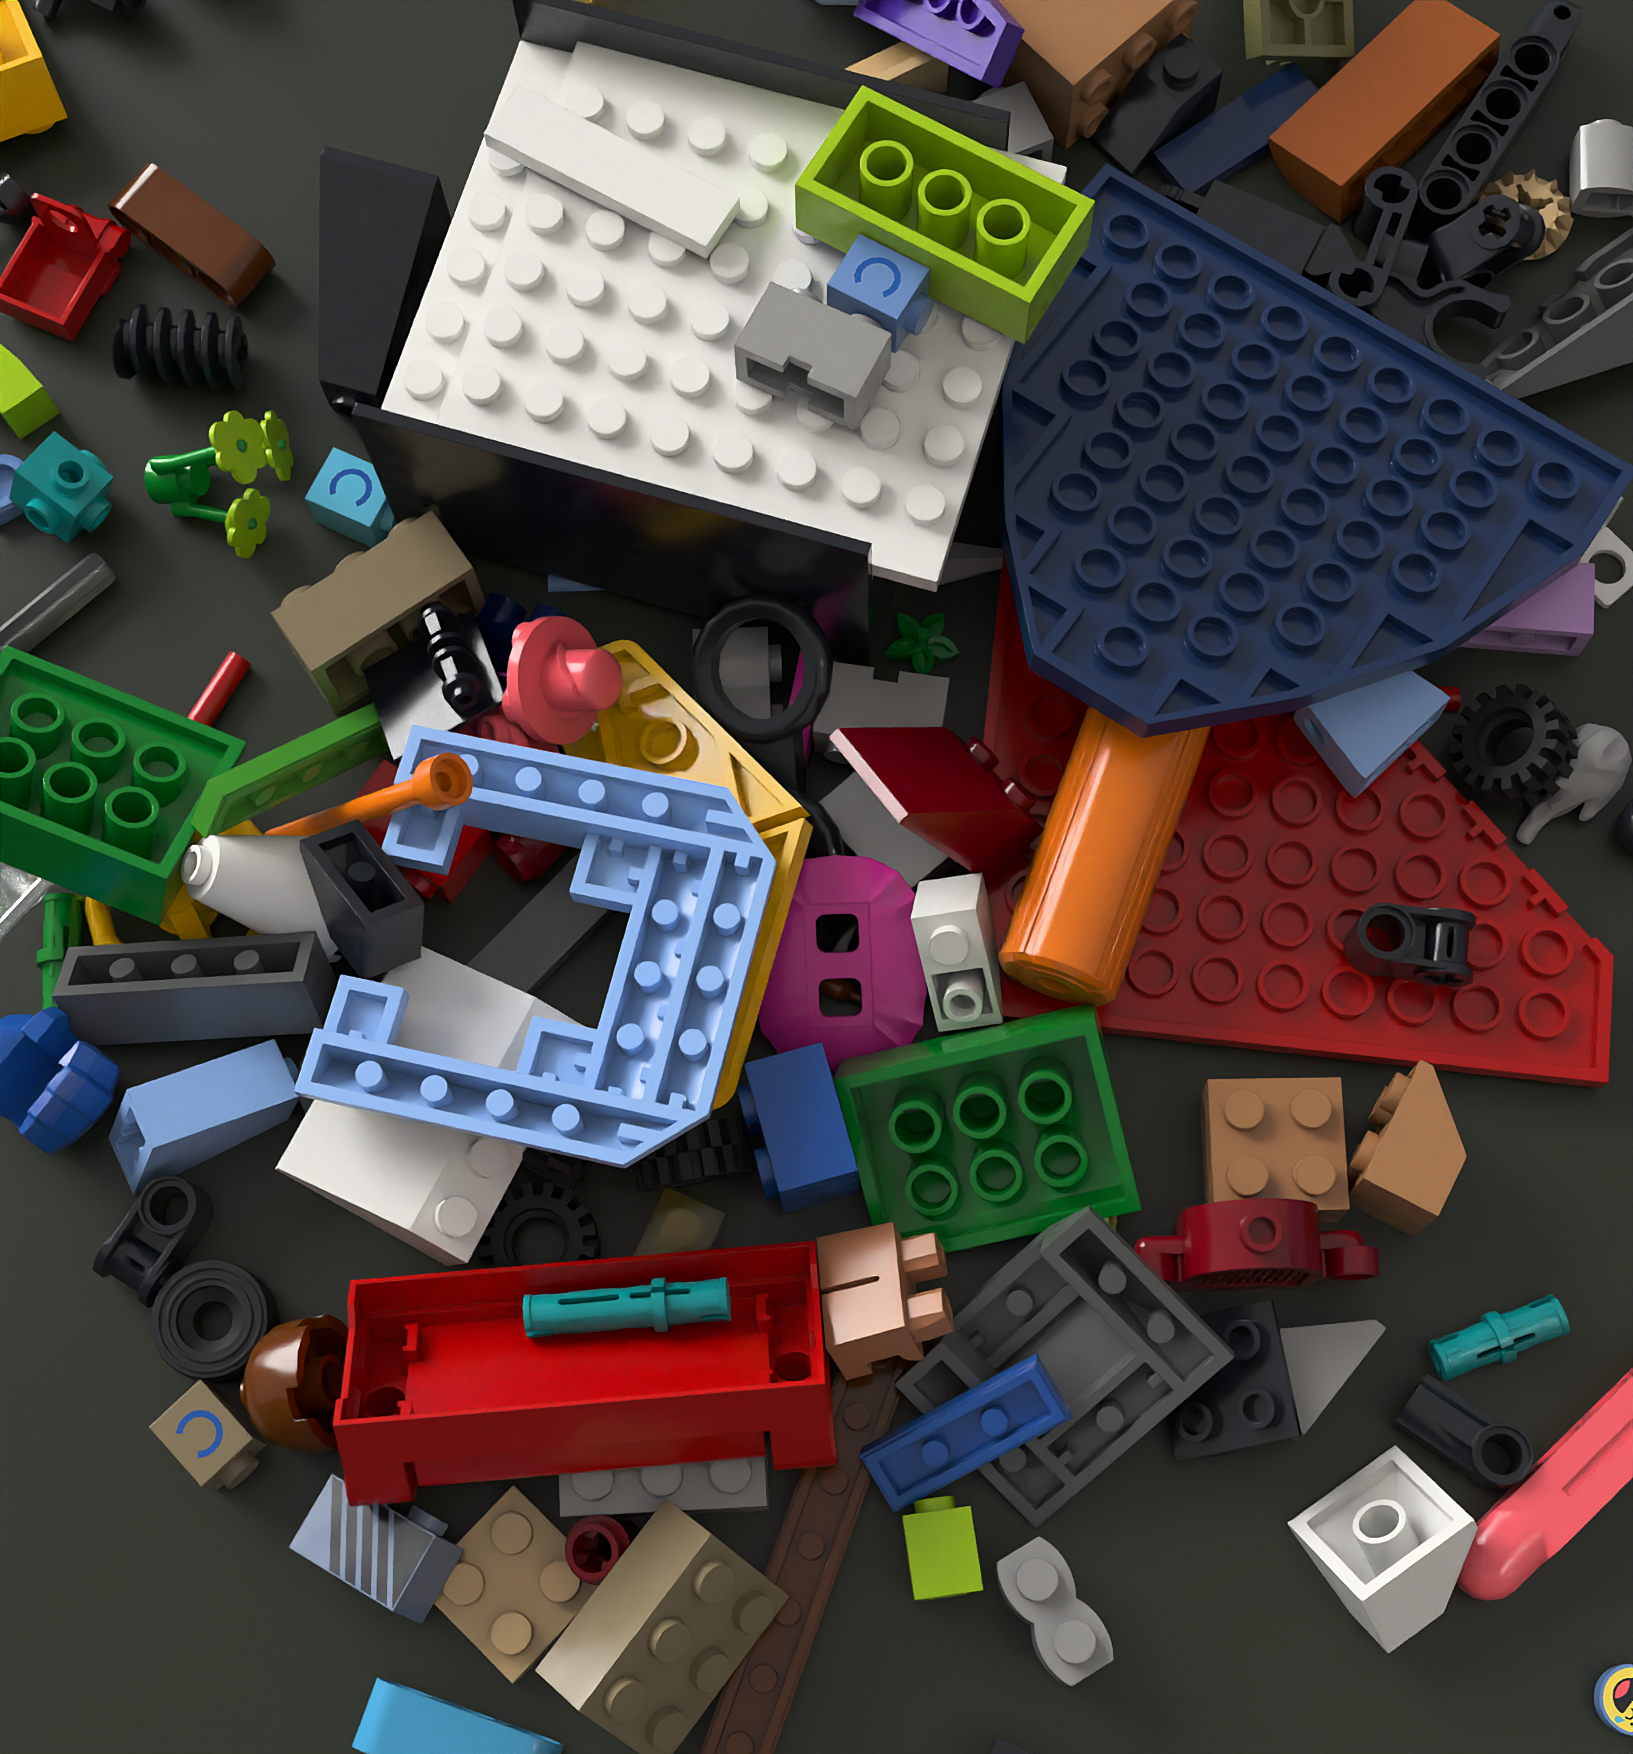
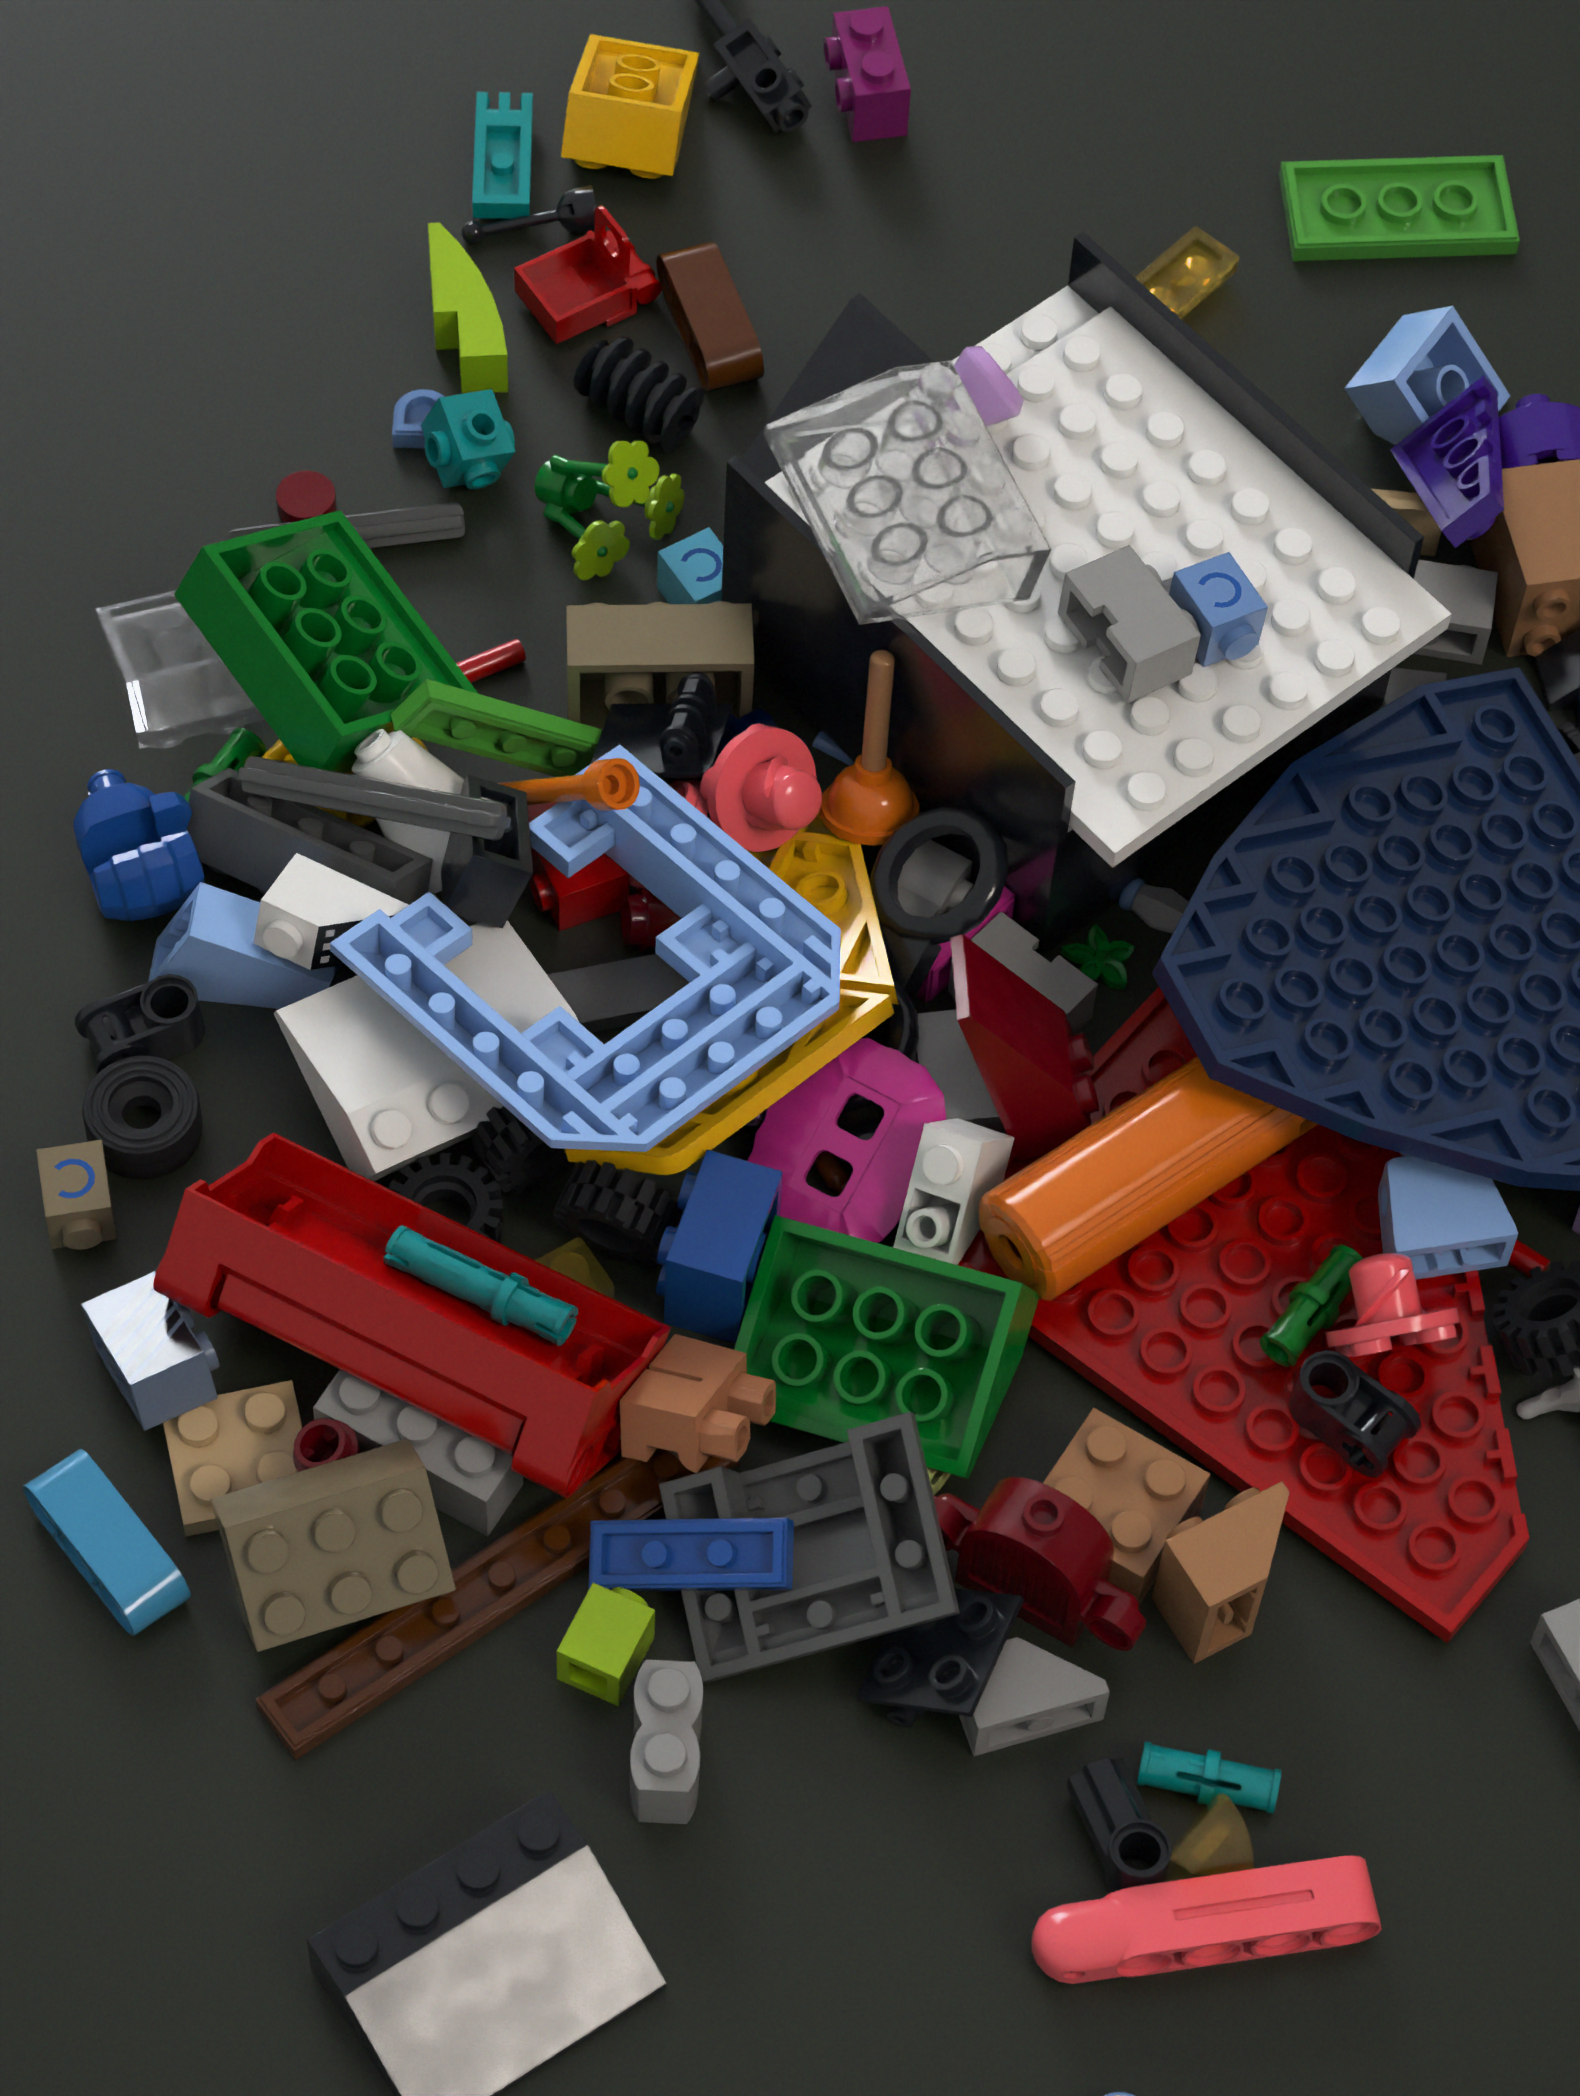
camera: 25 degrees right, 15 degrees down
(233, 916) = (374, 798): none -> dark grey axle
(255, 1052) = (312, 908): none -> white slope
(296, 1382) = (157, 1181): reddish brown cylinder -> none
(529, 199) = (988, 386): none -> lavender cone
(540, 350) = (910, 496): none -> clear slope
(612, 171) = (1067, 411): white tile -> none
(649, 626) = (871, 795): none -> orange piece
(980, 221) = (1334, 599): lime brick -> none
(1316, 862) = (1311, 1307): none -> green pin
(1388, 1546) = (988, 1873): white slope -> none
(1397, 840) = (1388, 1307): none -> coral plate
(1543, 1400) = (1215, 1841): none -> clear yellow tile

